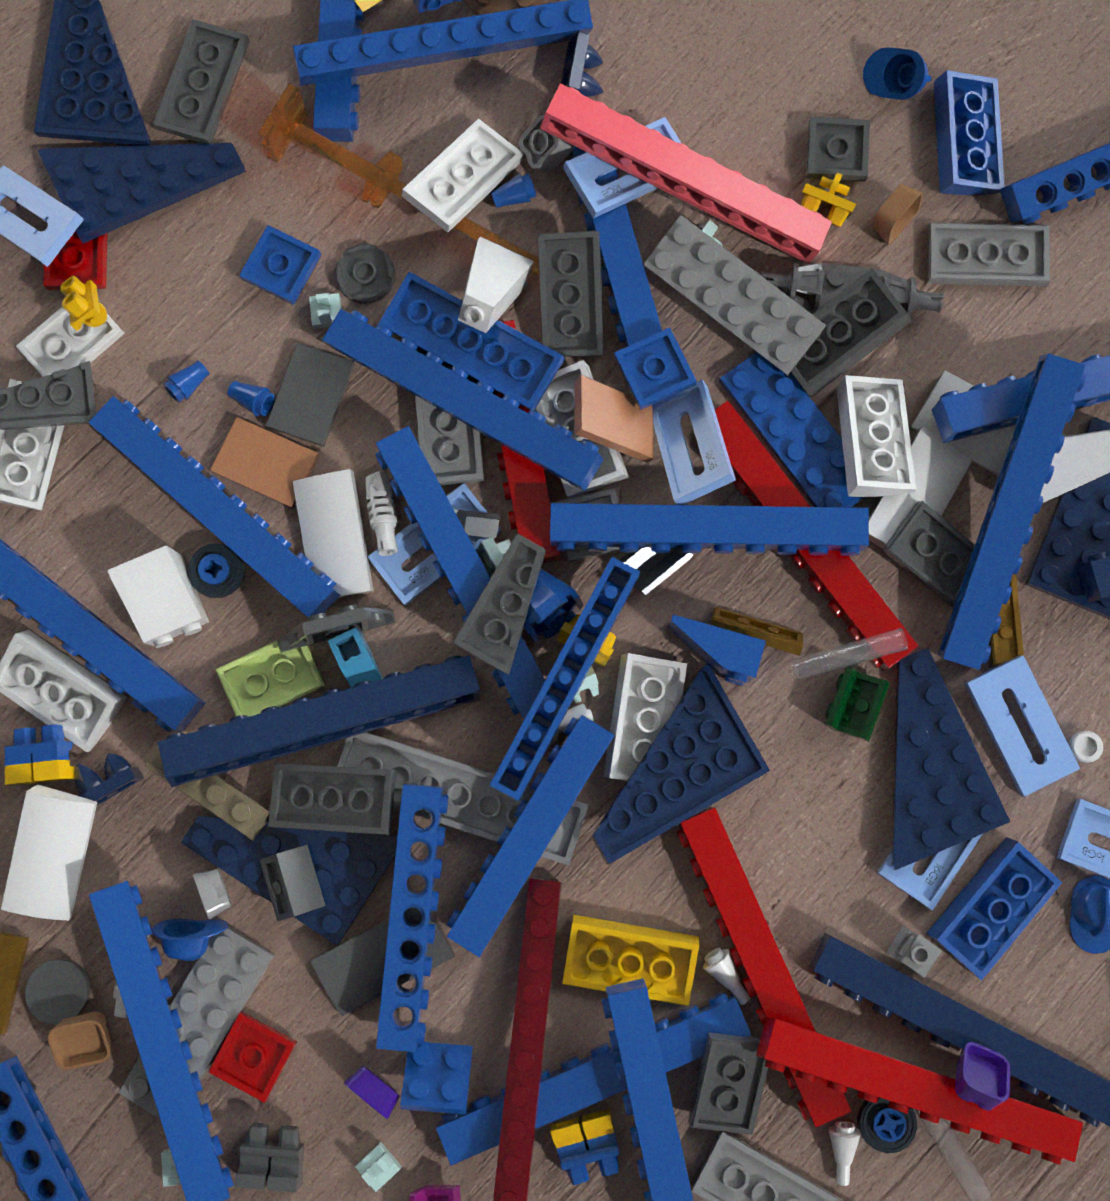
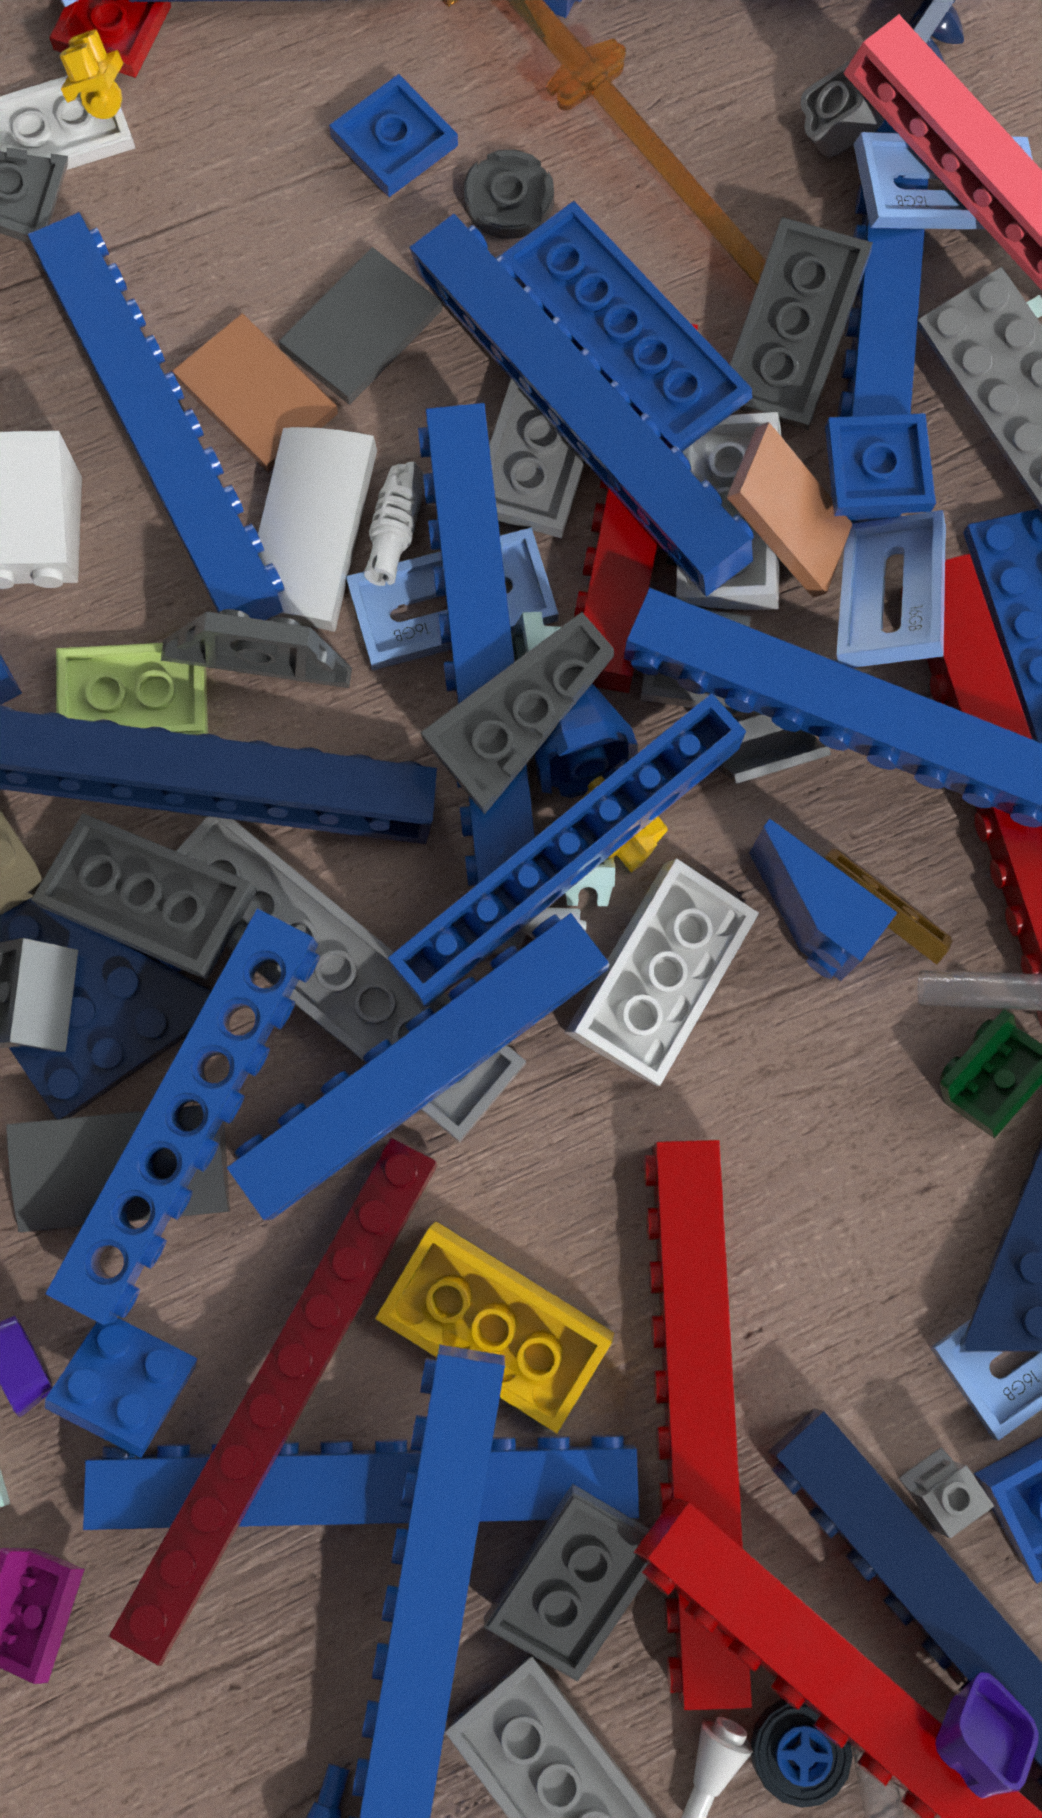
camera: 10 degrees right, 5 degrees down
(186, 381) = (190, 239): blue cone -> none
(225, 576) = (126, 528): black wheel -> none
(253, 398) = (277, 296): blue cone -> none
(324, 309) = (427, 213): light aqua tile -> none
(355, 657) = (266, 702): dark azure slope -> none
(462, 175) = (703, 107): white plate -> none
(479, 523) = (530, 591): white sticker -> none
(492, 284) = (688, 261): white slope -> none
(515, 191) = (768, 162): blue cone -> none
(575, 1153) = (286, 1591): hips -> none
(688, 767) = (702, 1065): dark blue wing -> none
(722, 968) = (633, 1396): white cone -> none

